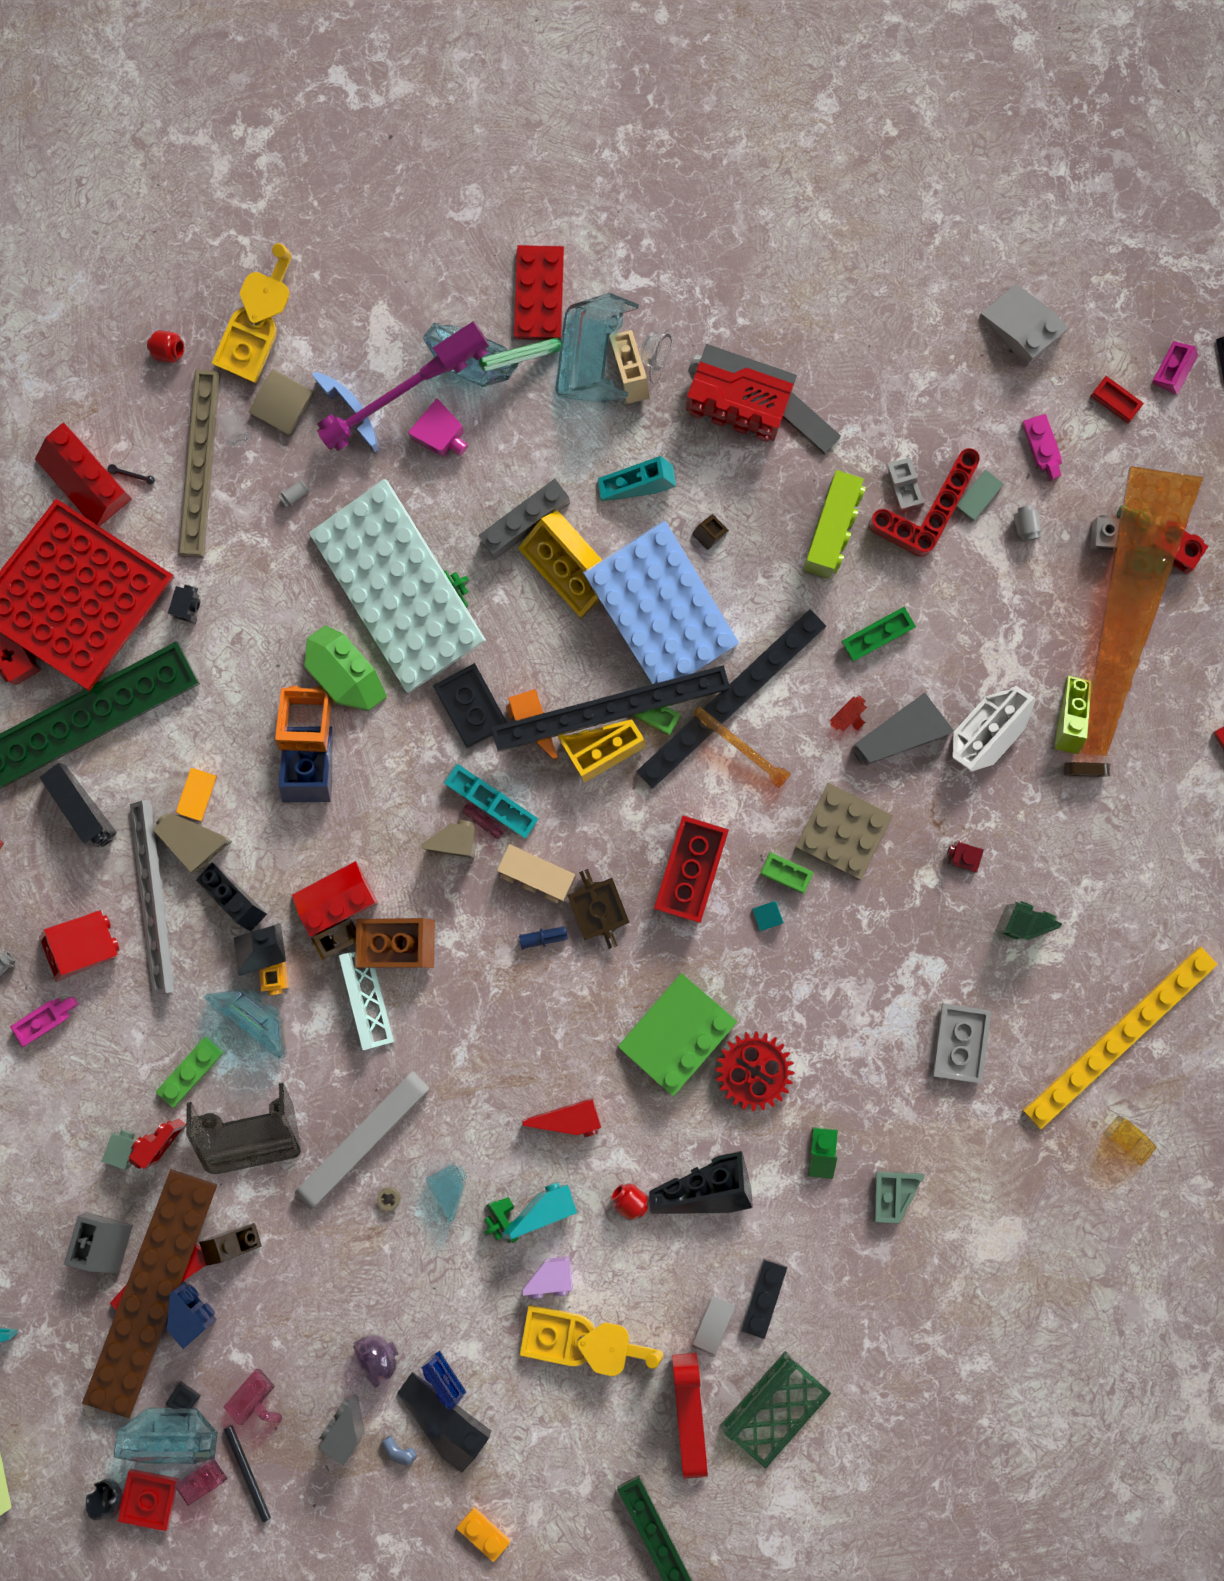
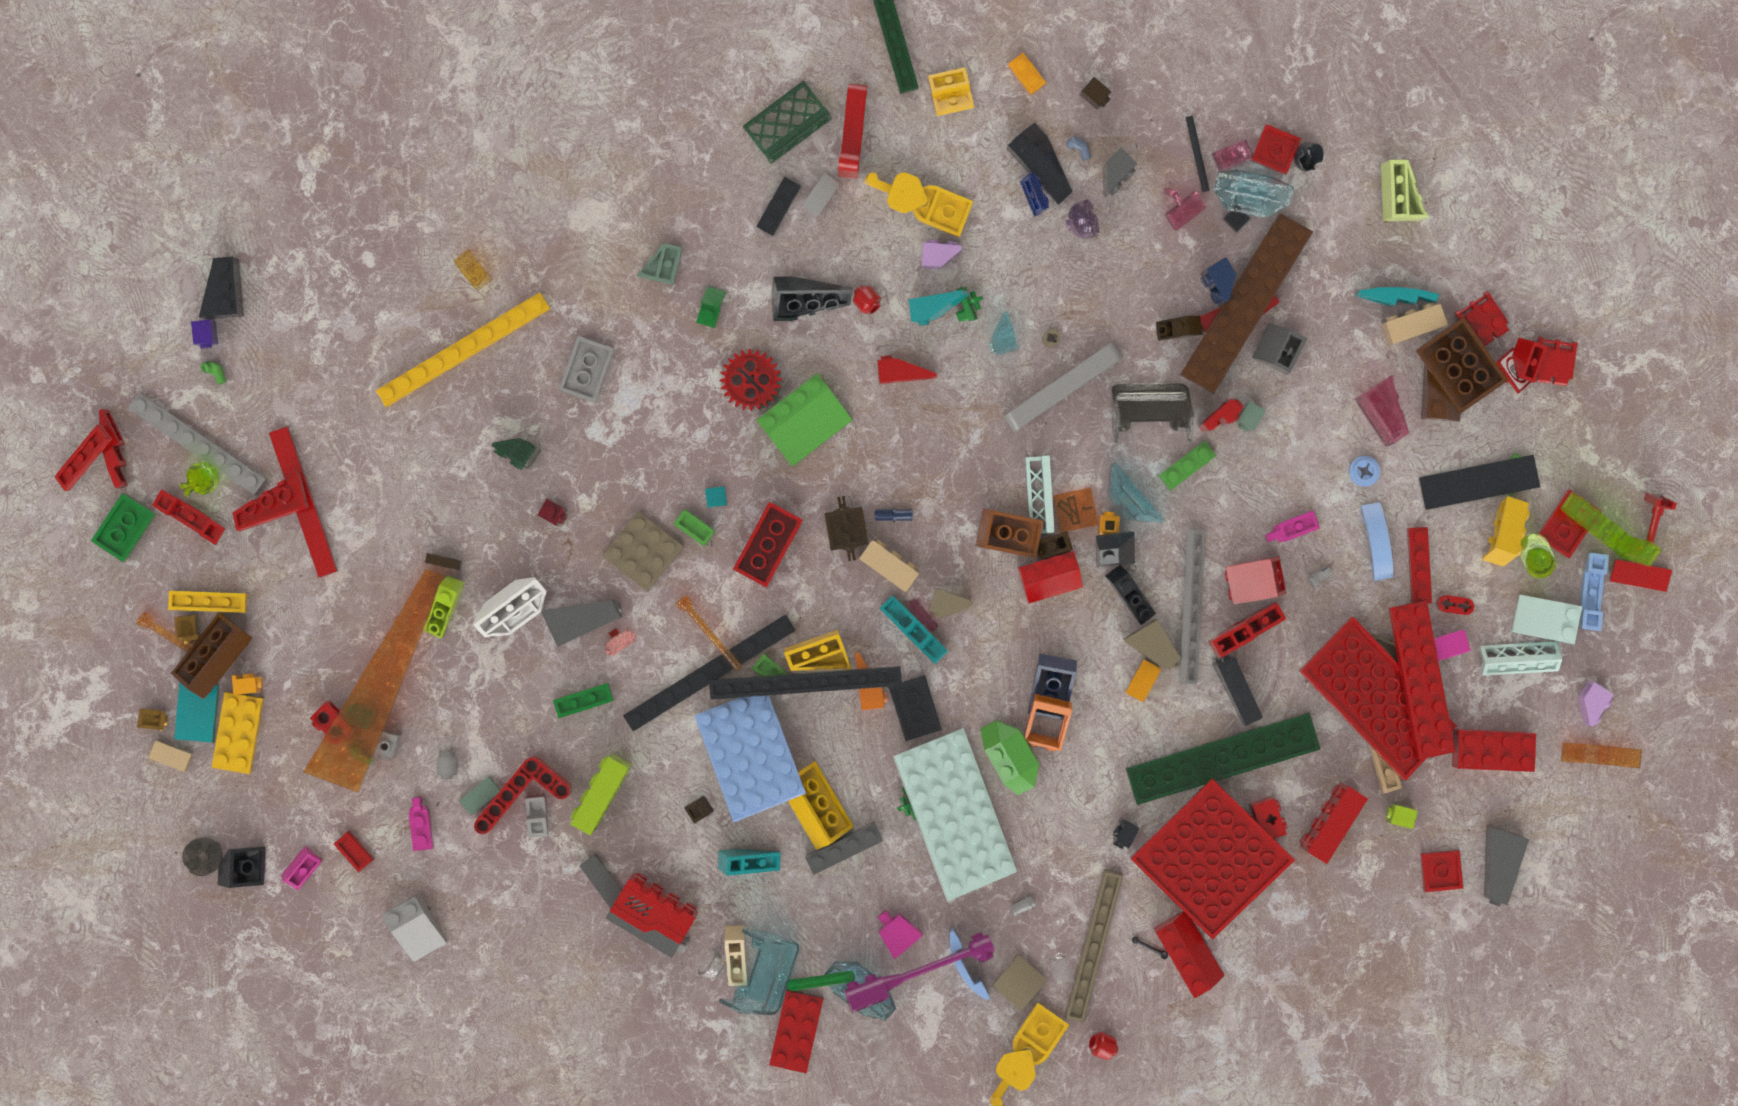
camera: 175 degrees left, 5 degrees up
(77, 881) = (1247, 629): none -> red brick
(318, 988) = (1075, 510): none -> clear orange tile
(389, 1526) = (1096, 93): none -> dark brown brick
(575, 1491) = (951, 91): none -> yellow slope

